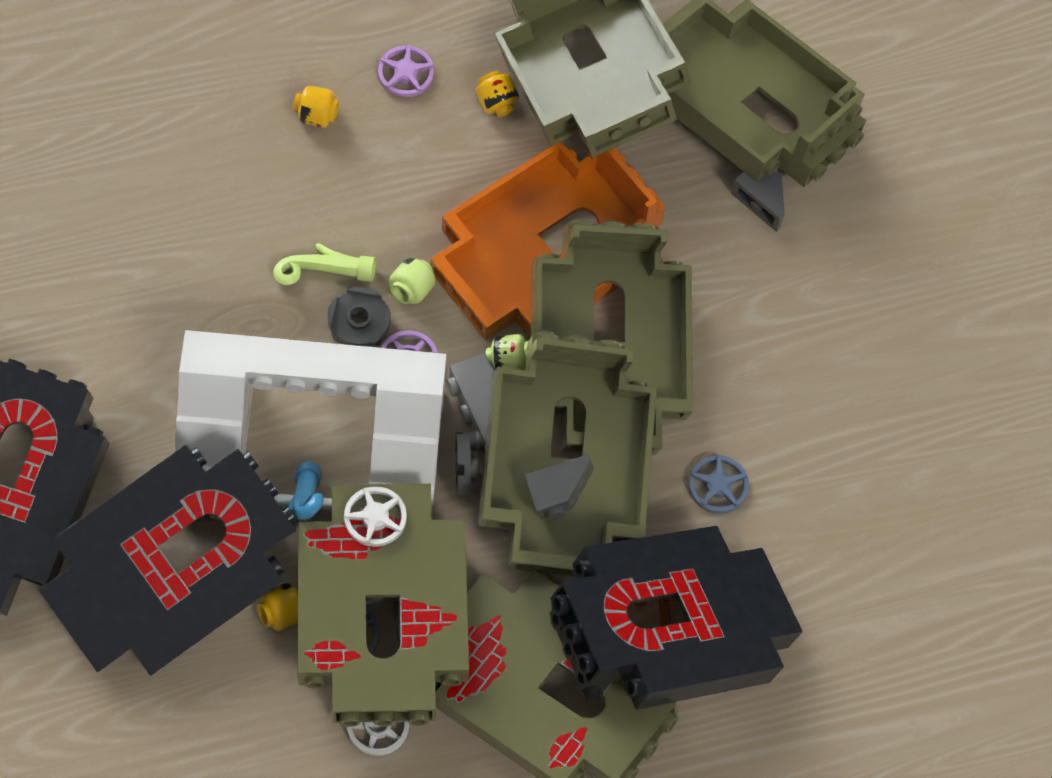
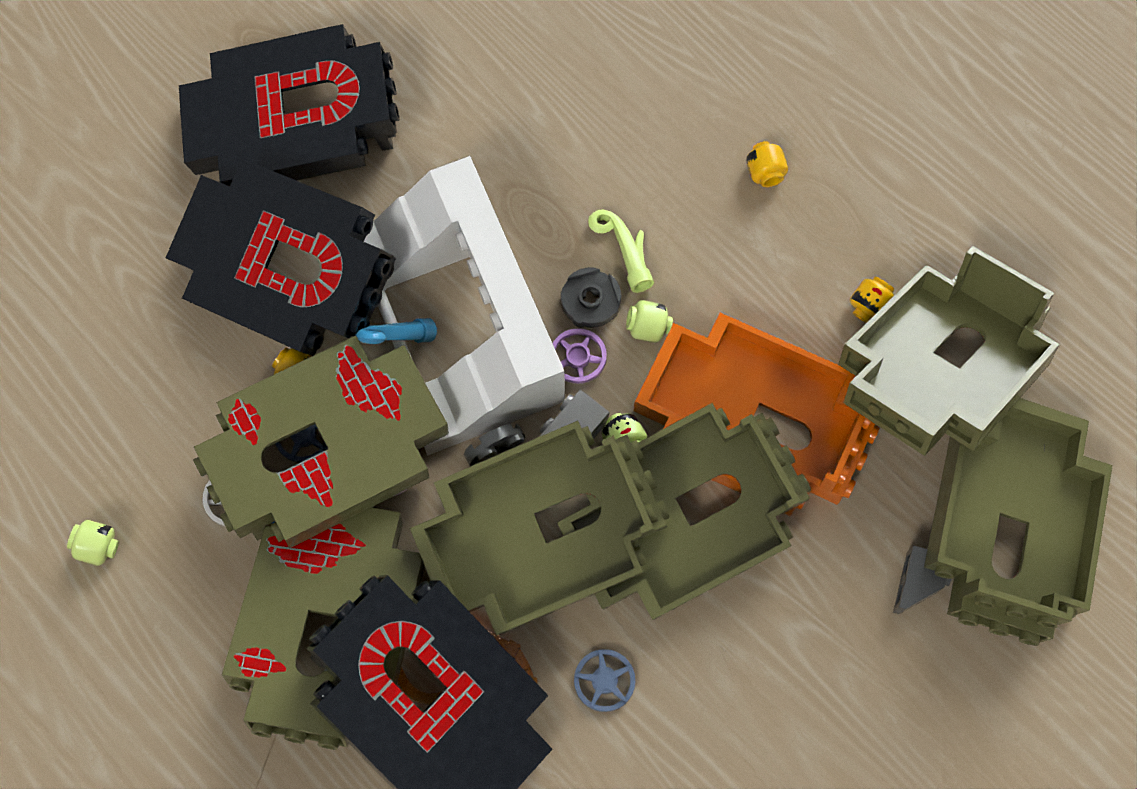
camera: 70 degrees right, 5 degrees up
(375, 516) = (390, 393): white wheel -> none
(405, 71) = (850, 217): lavender wheel -> none
(559, 486) = (498, 533): dark grey slope -> none

